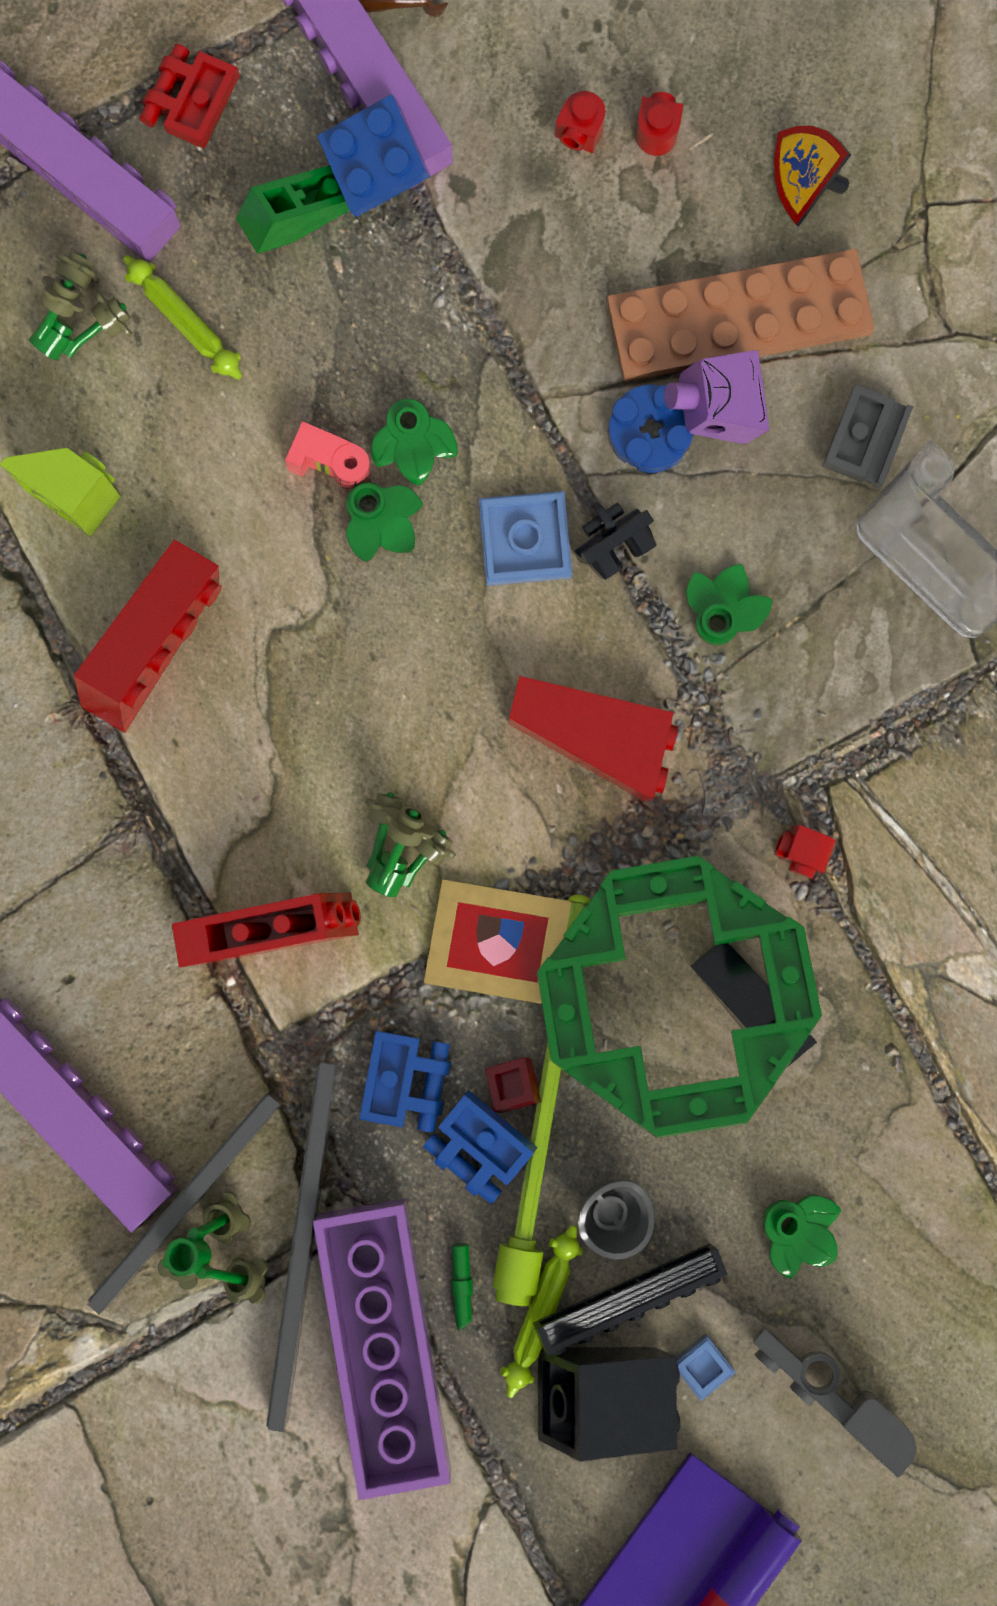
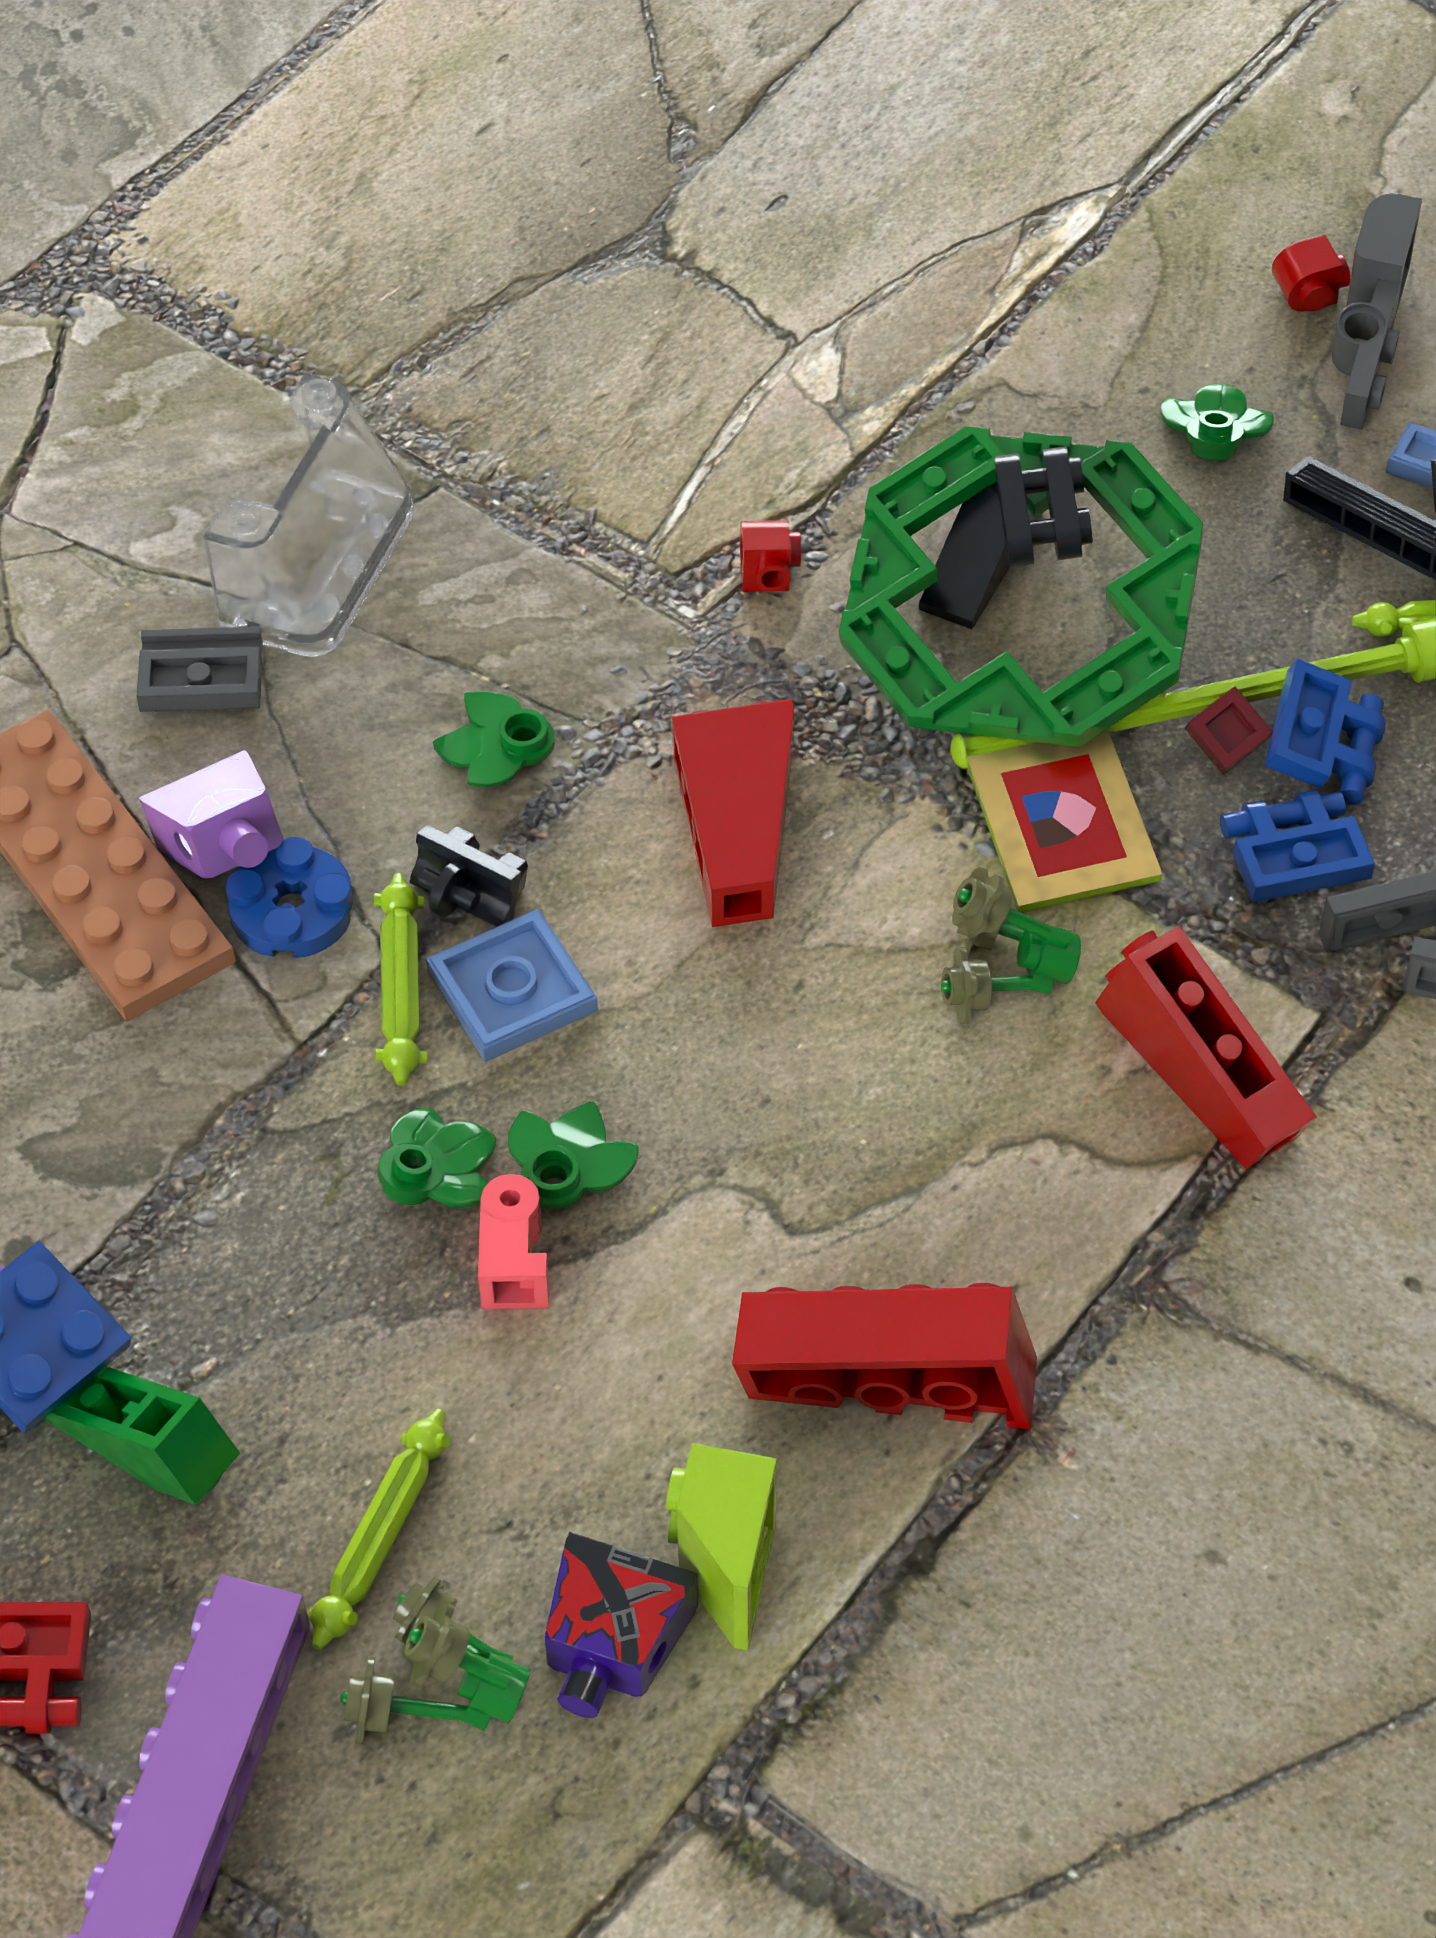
camera: 110 degrees left, 30 degrees down
(60, 410) = (613, 1621): none -> torso
(557, 470) = (399, 979): none -> lime wheel
(616, 1219) = (1317, 573): dark grey helmet -> none
(728, 1048) = (1067, 525): none -> black brick
(907, 1379) = (1311, 274): none -> red plate

